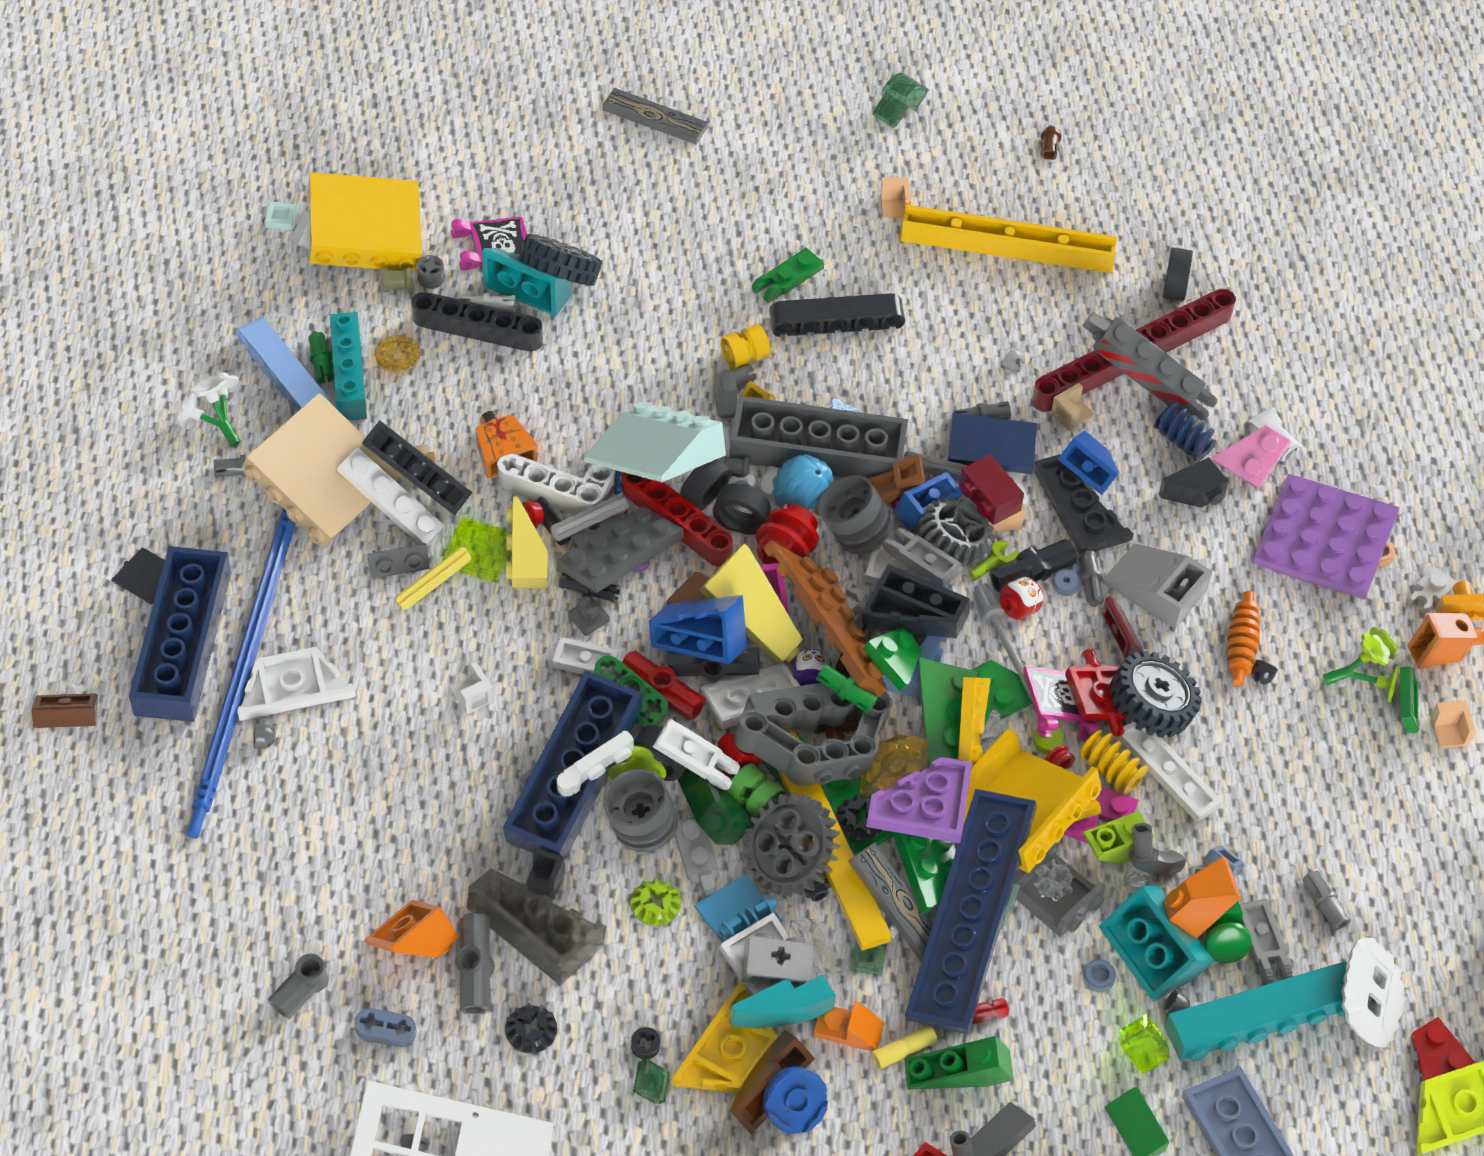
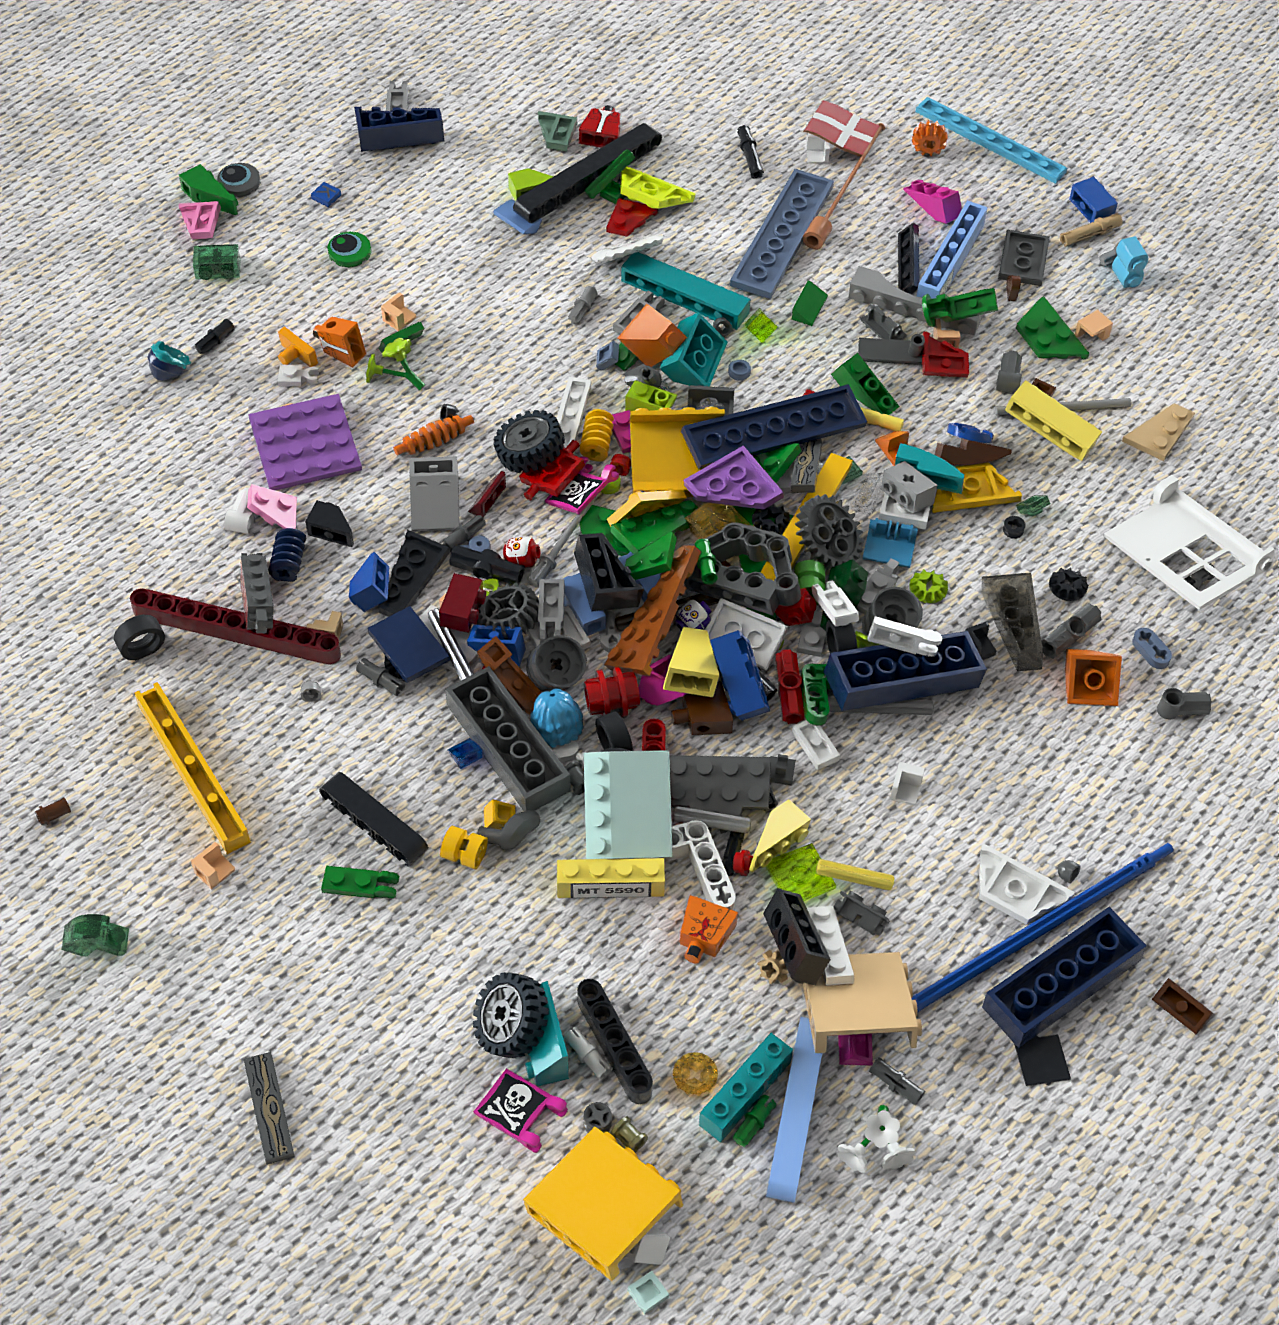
camera: 130 degrees left, 0 degrees up
(585, 432) = (610, 878): none -> light yellow brick

